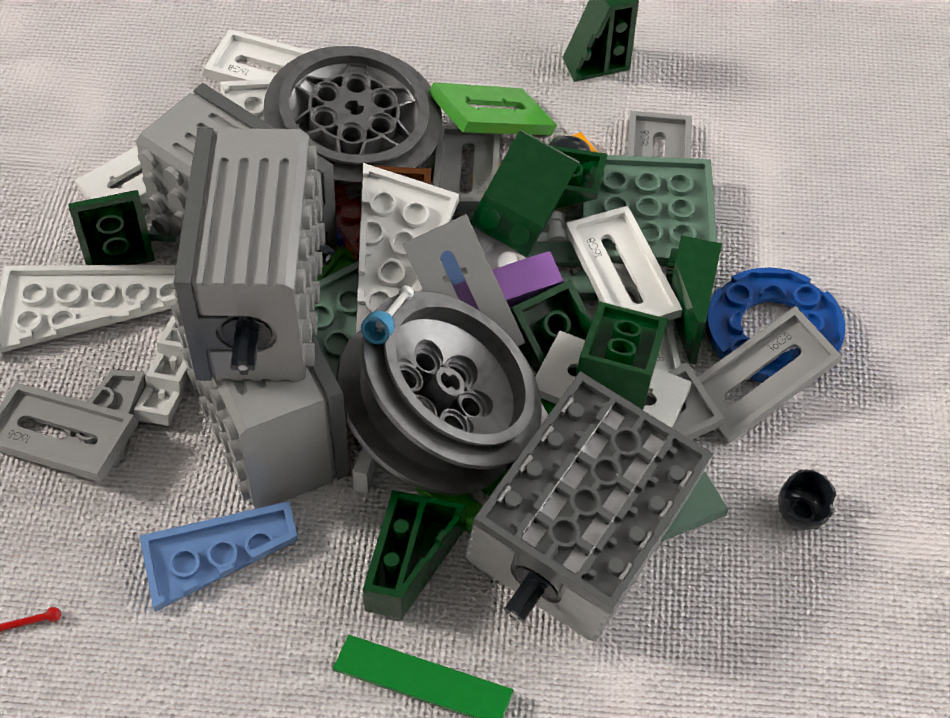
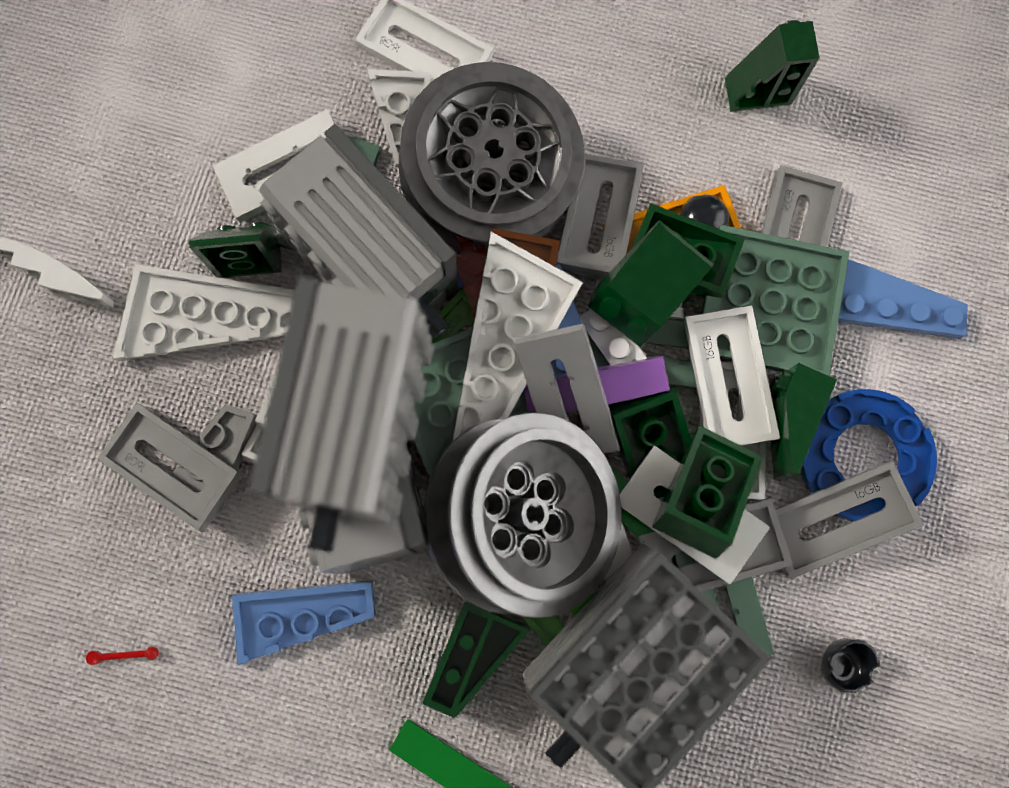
camera: 10 degrees right, 25 degrees up
(384, 320) = (471, 476): dark azure hinge -> none
(455, 101) = (637, 172): bright green piece -> none
(768, 203) = (895, 304): none -> medium blue wing

